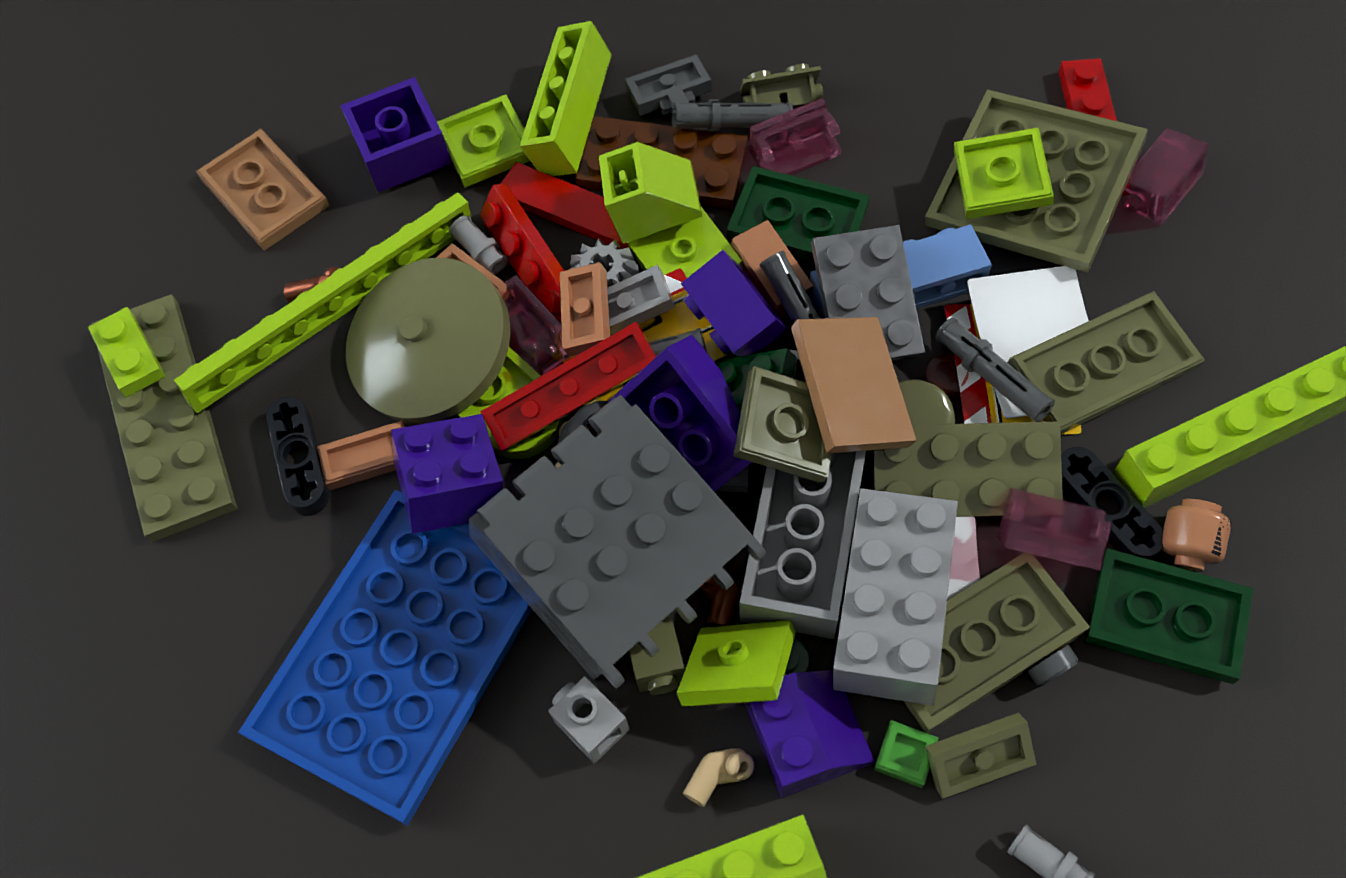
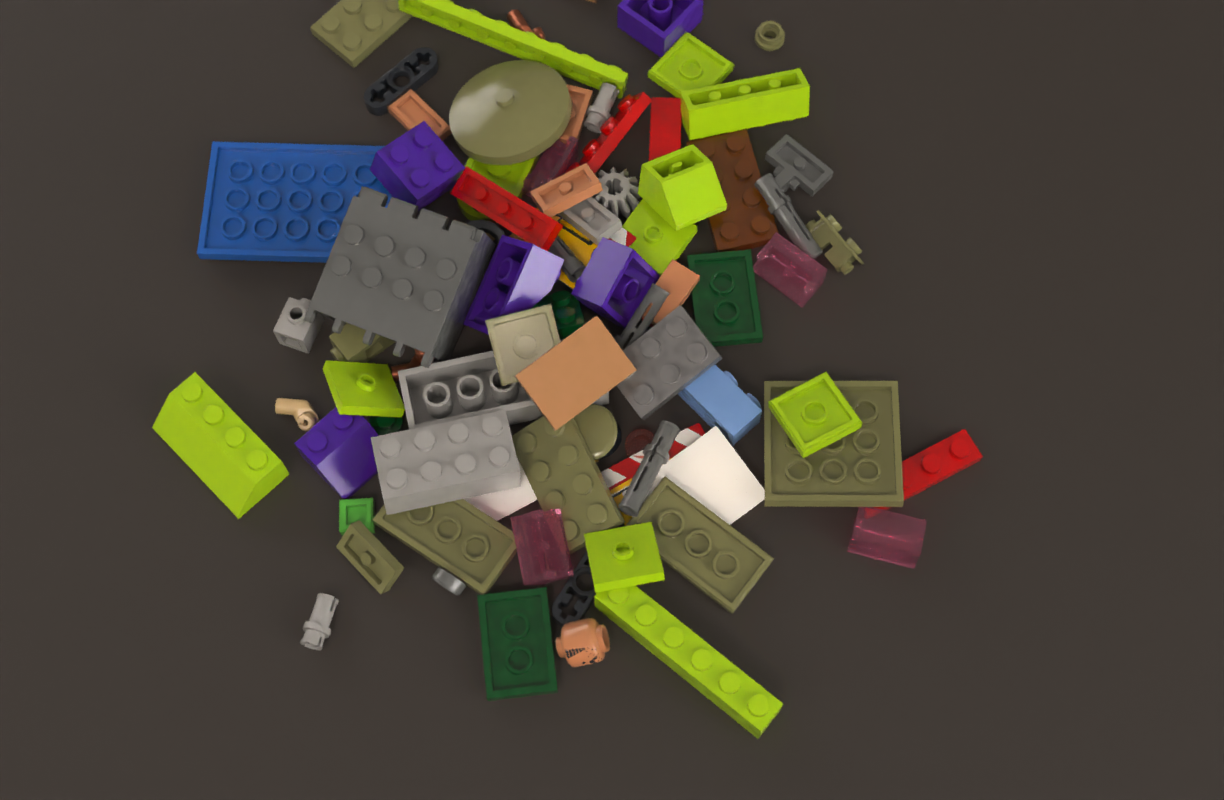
camera: 60 degrees right, 5 degrees up
(488, 51) = (772, 29): none -> olive plate
(1114, 434) = (623, 557): none -> lime plate

